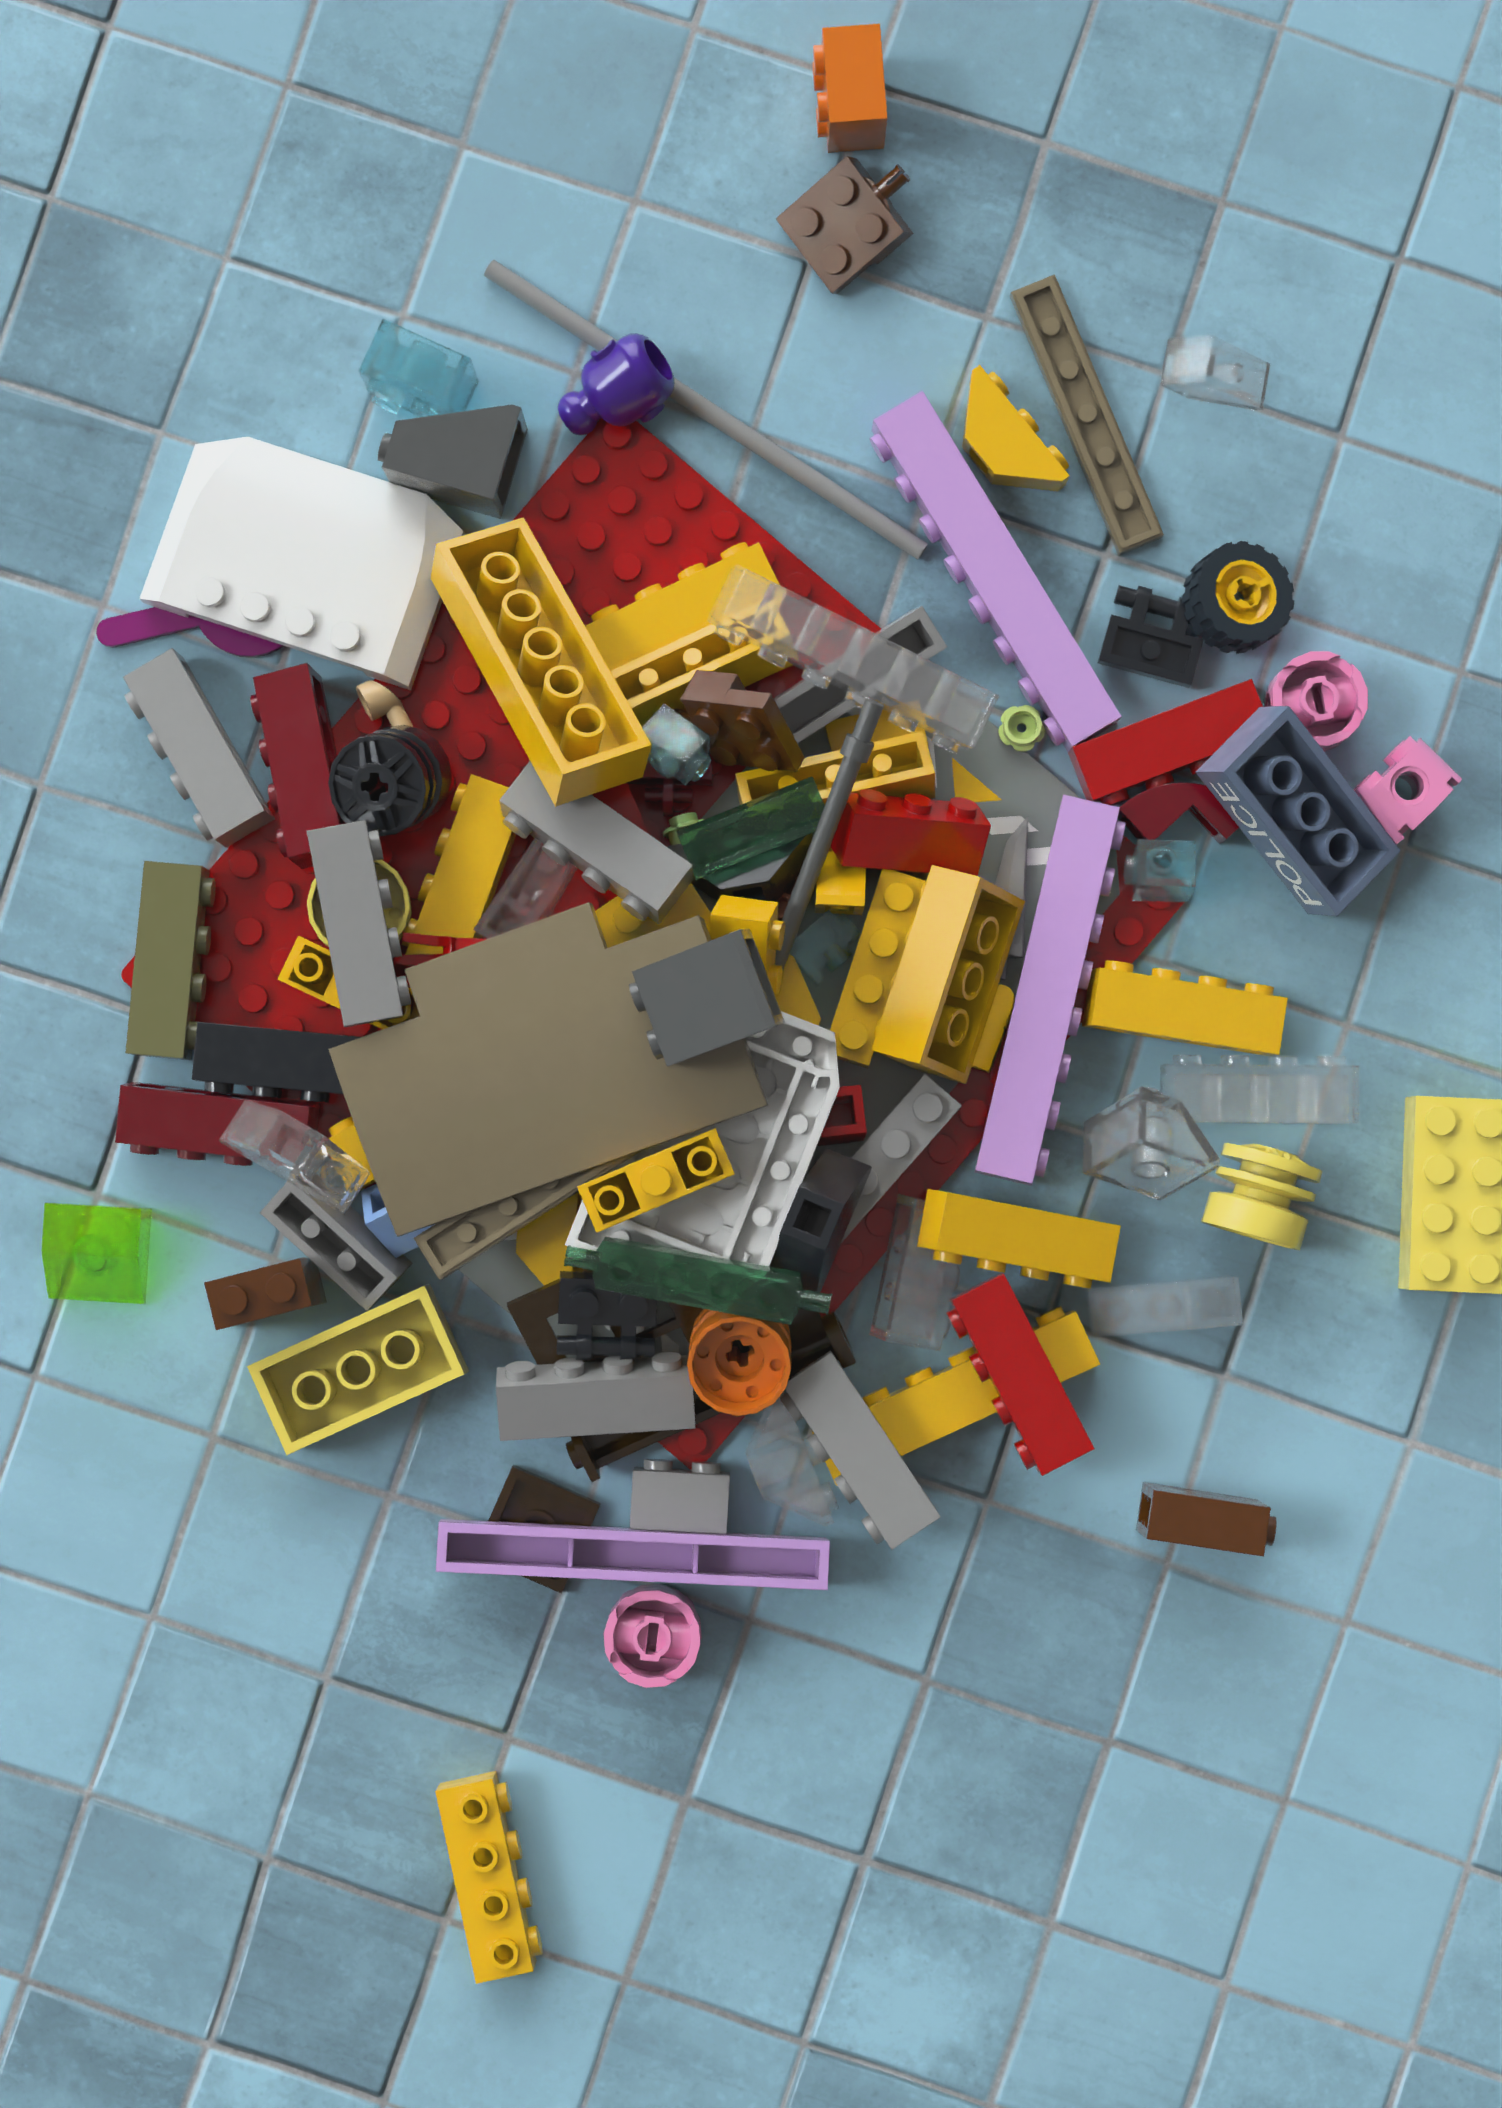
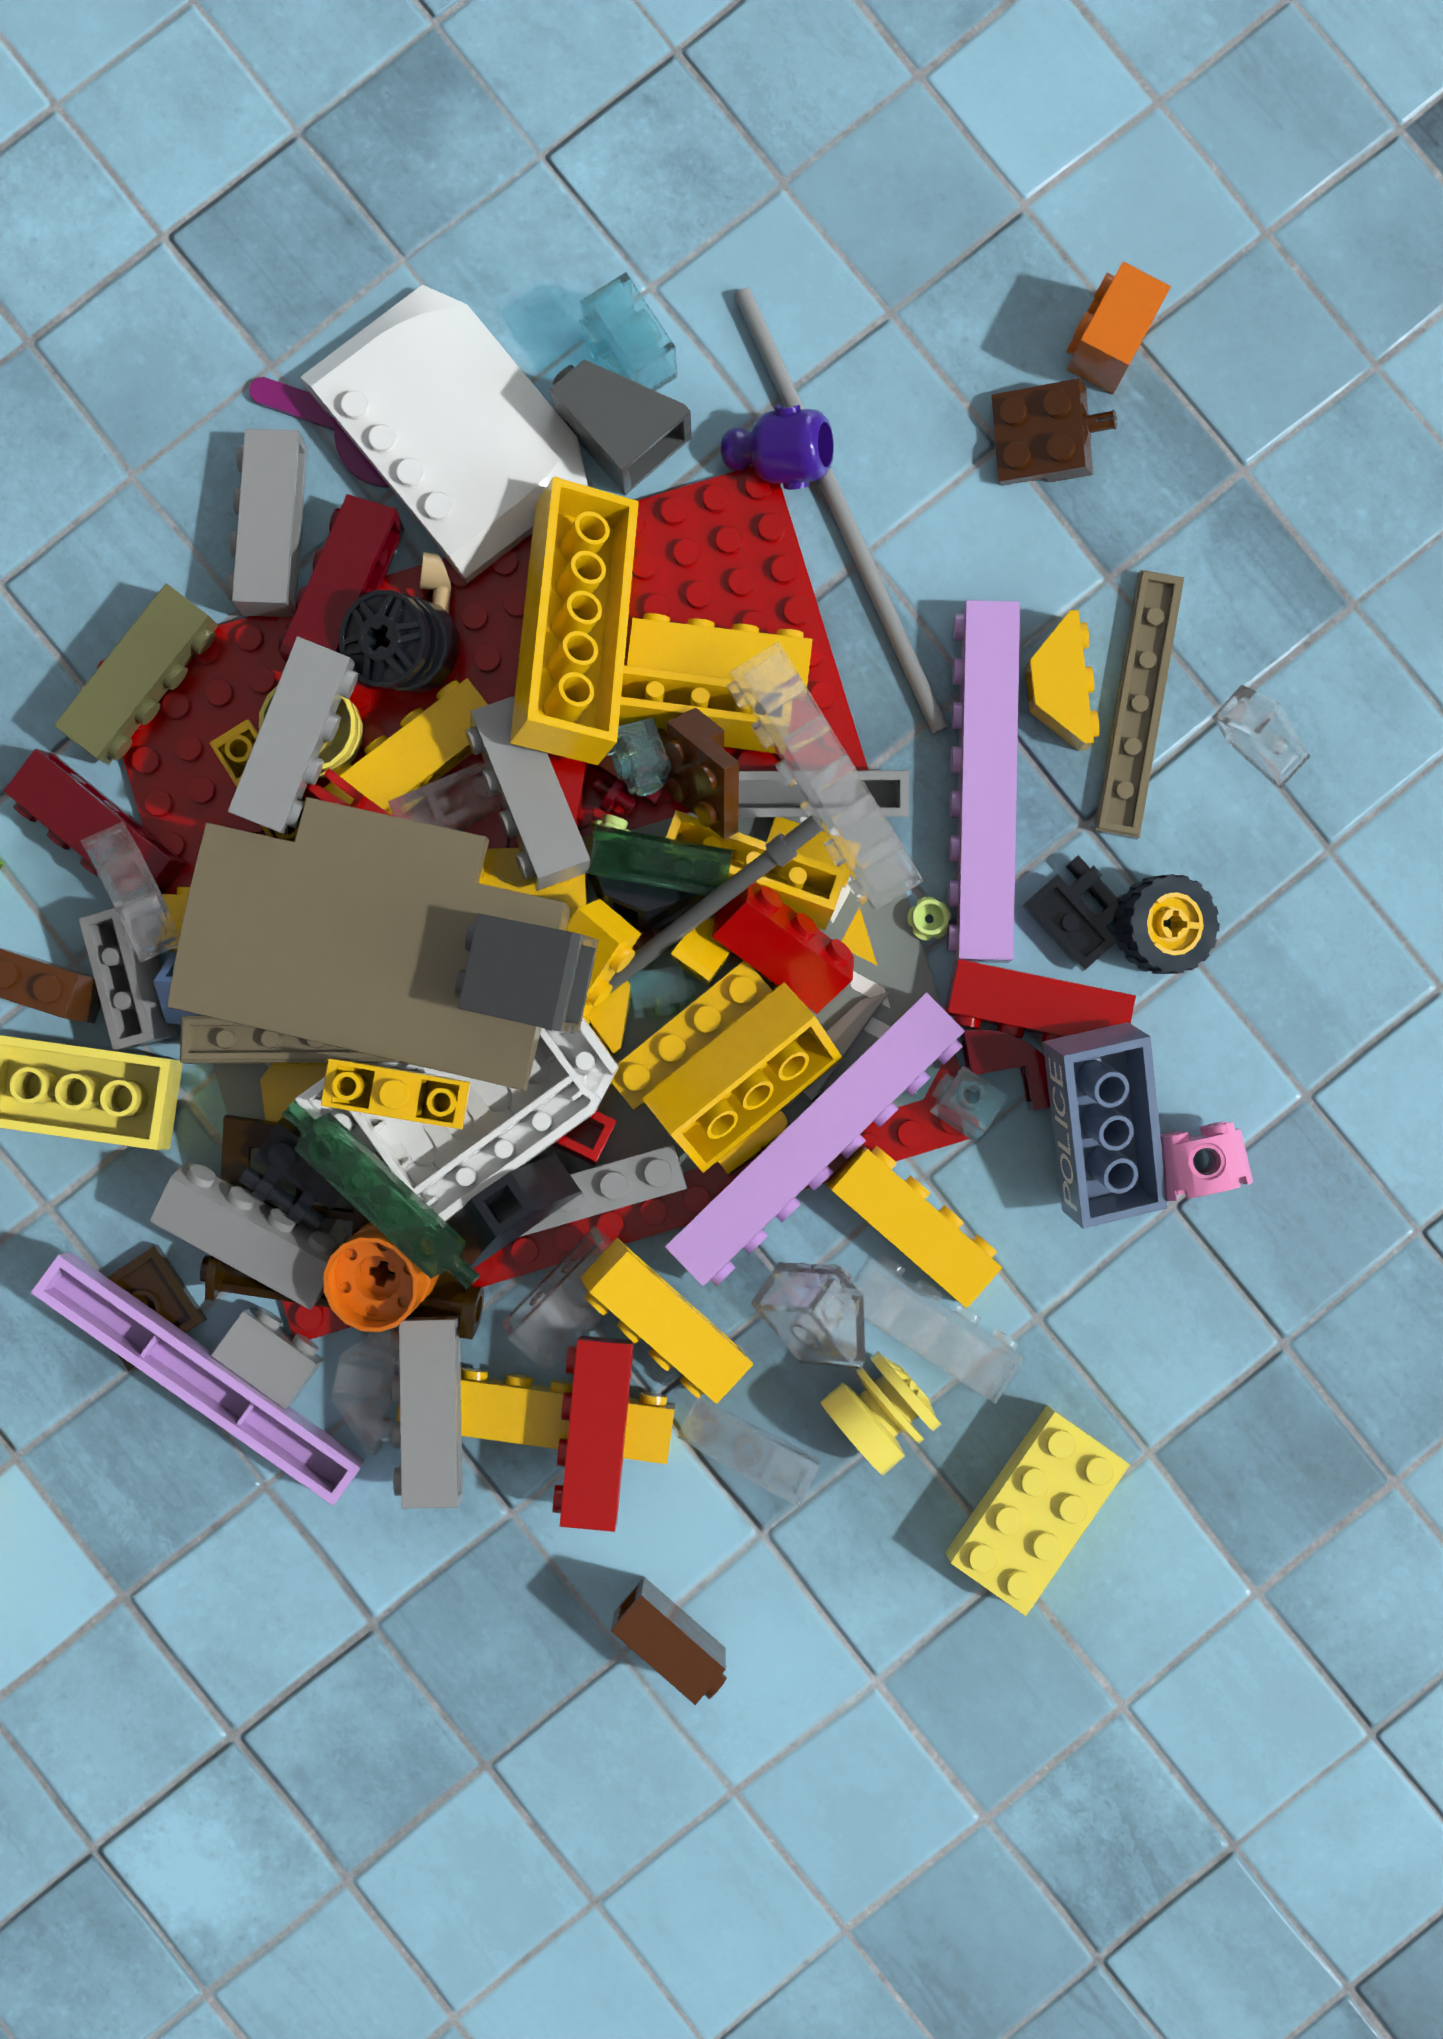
camera: 25 degrees right, 0 degrees up
(266, 1061) = (159, 799): black brick -> none
(652, 1635) = (175, 1452): bright pink brick -> none
(1323, 694) = (1183, 1043): bright pink brick -> none

